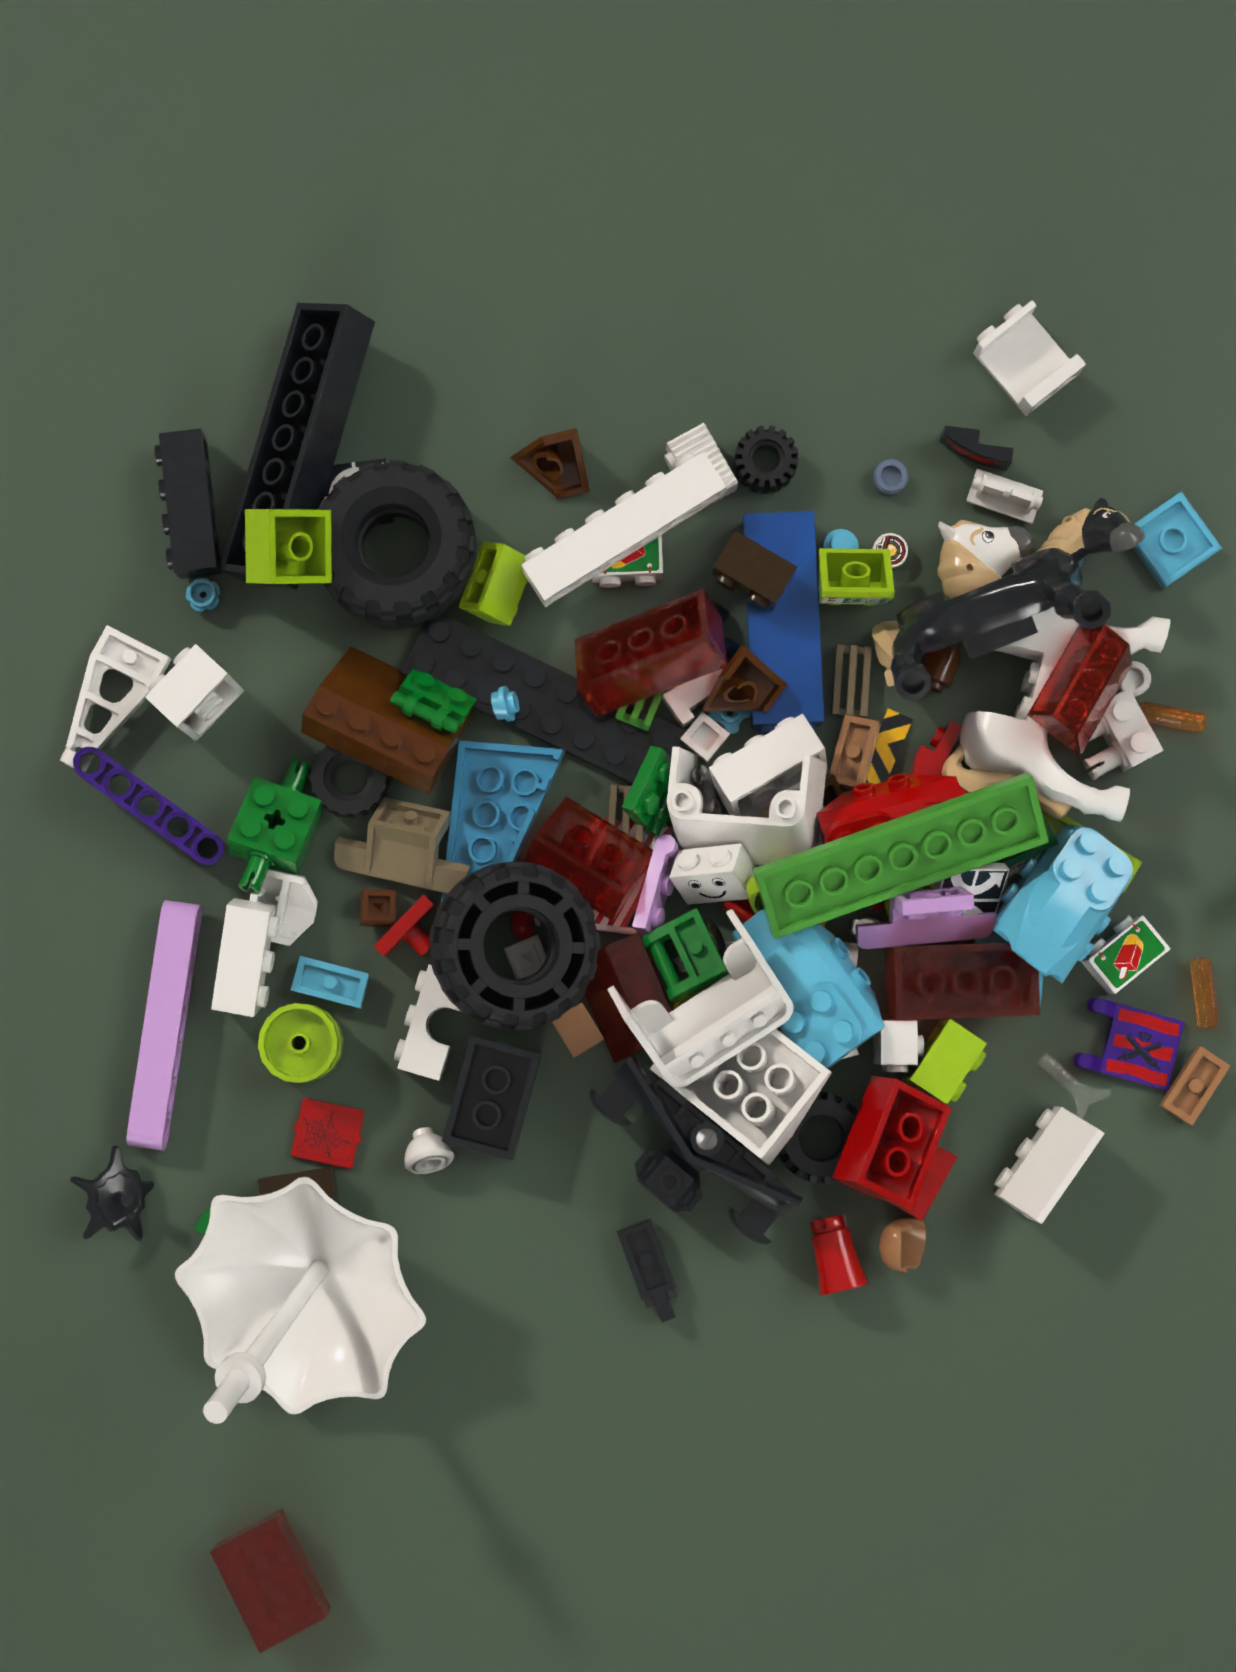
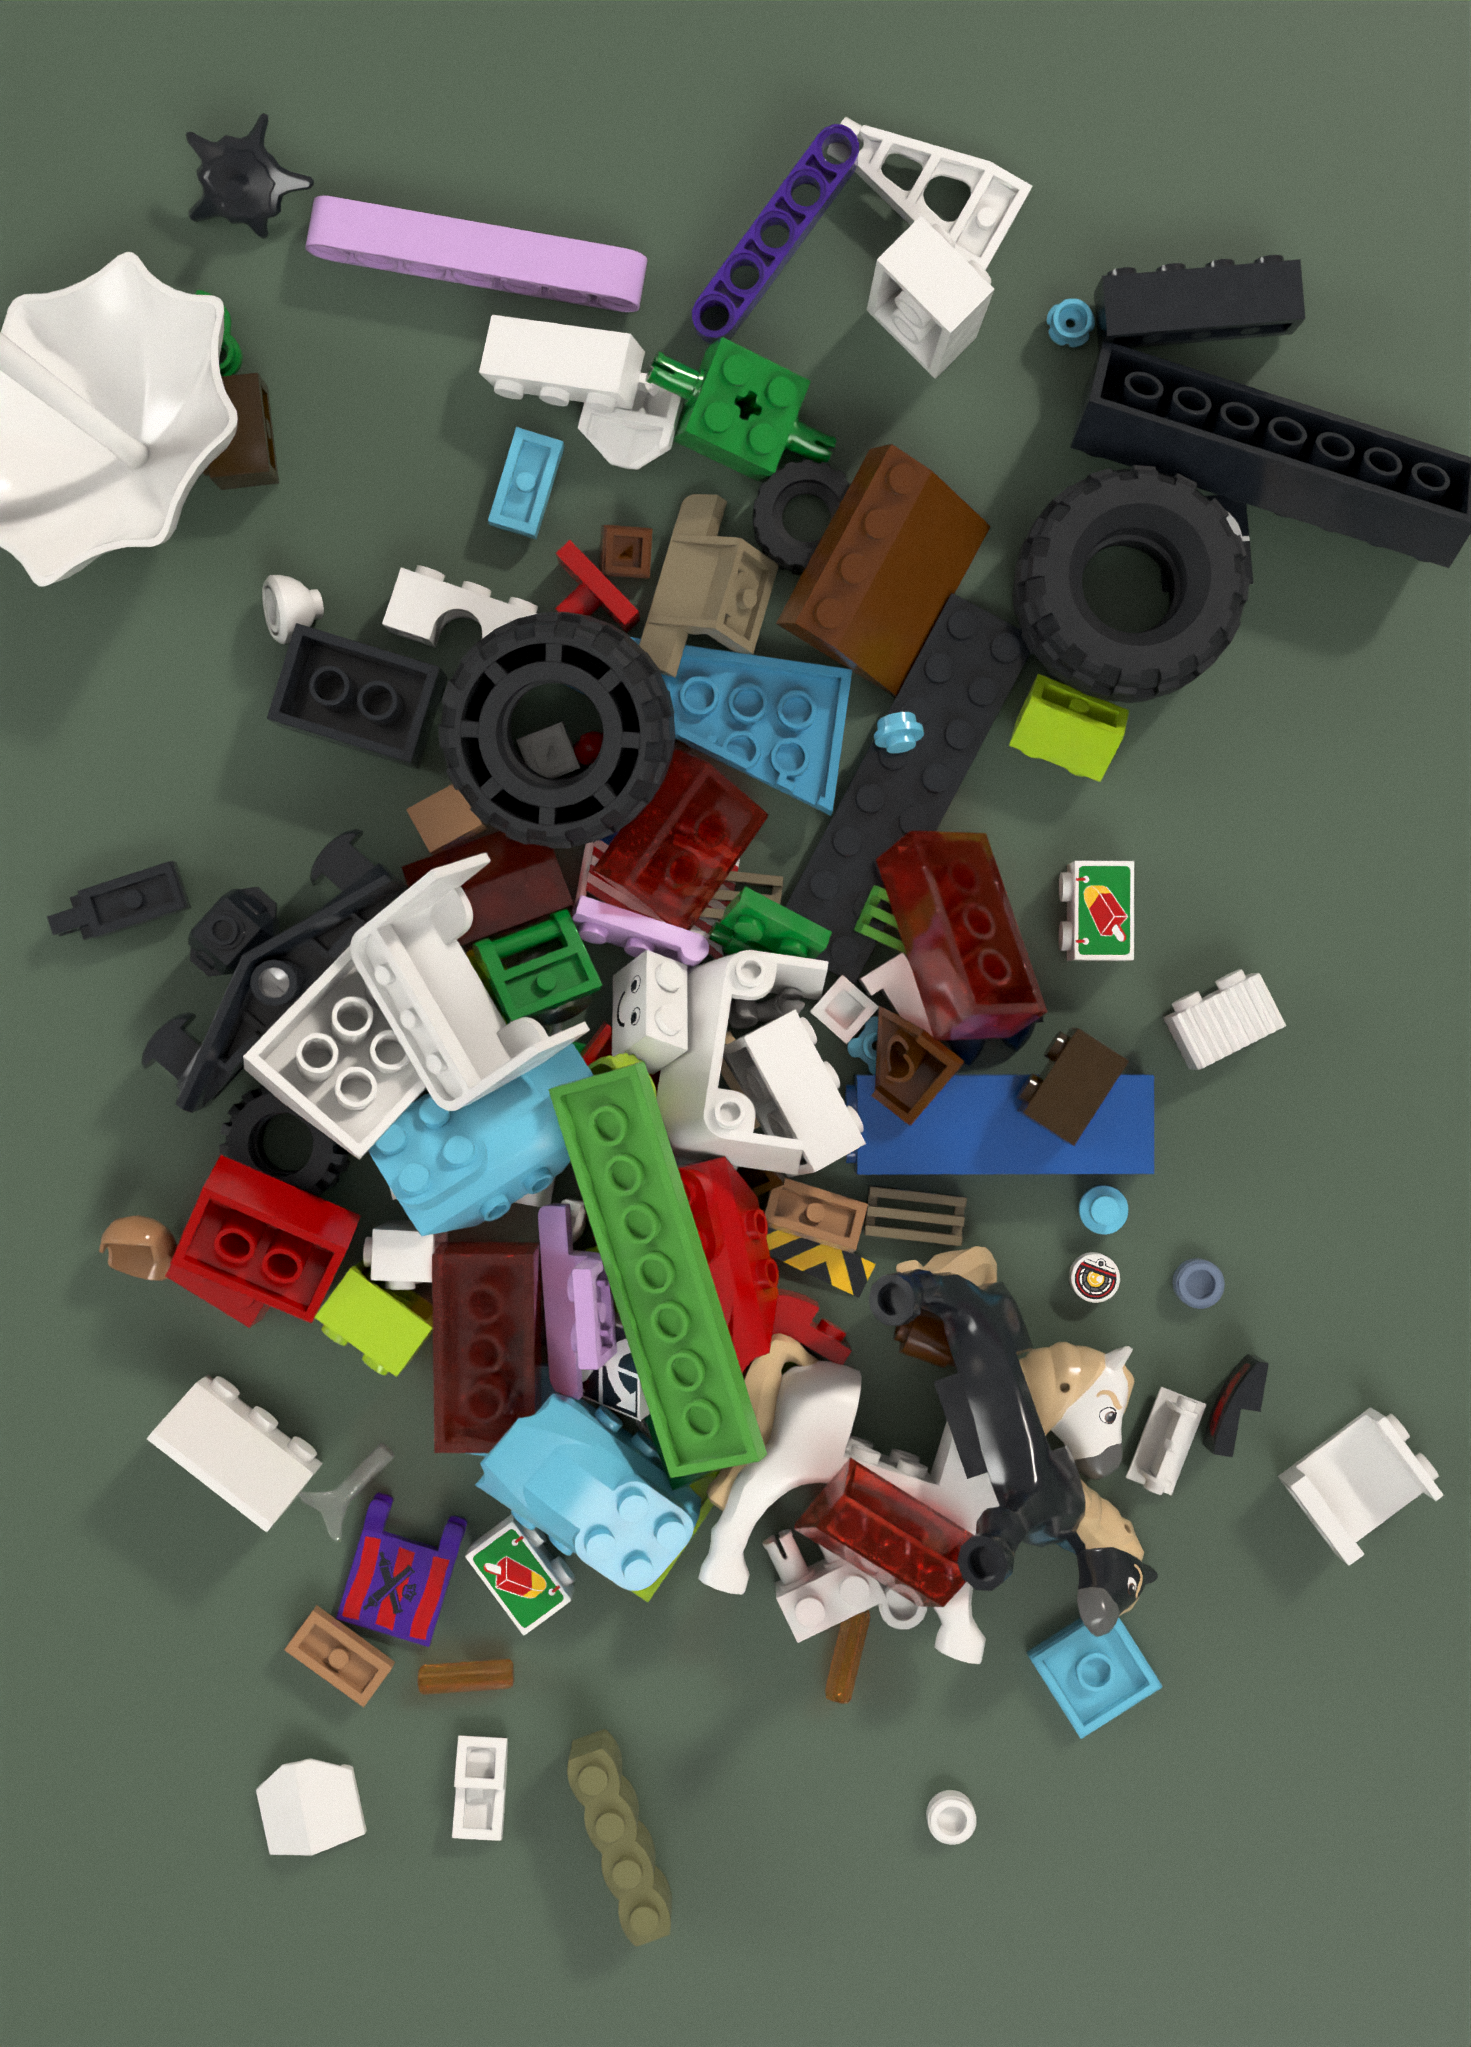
camera: 90 degrees right, 5 degrees up
(288, 546) = (1129, 424): lime brick -> none
(322, 1046) = (433, 408): lime wheel -> none
(327, 1133) = (323, 475): red piece -> none
(433, 701) = (905, 632): green plate -> none
(556, 463) = (1236, 818): reddish brown slope -> none
(624, 528) = (1139, 905): white brick -> none
(770, 439) = (1259, 1116): black tyre -> none
(836, 1256) = (125, 1156): red plant -> none
(855, 576) = (1059, 1226): lime slope -> none

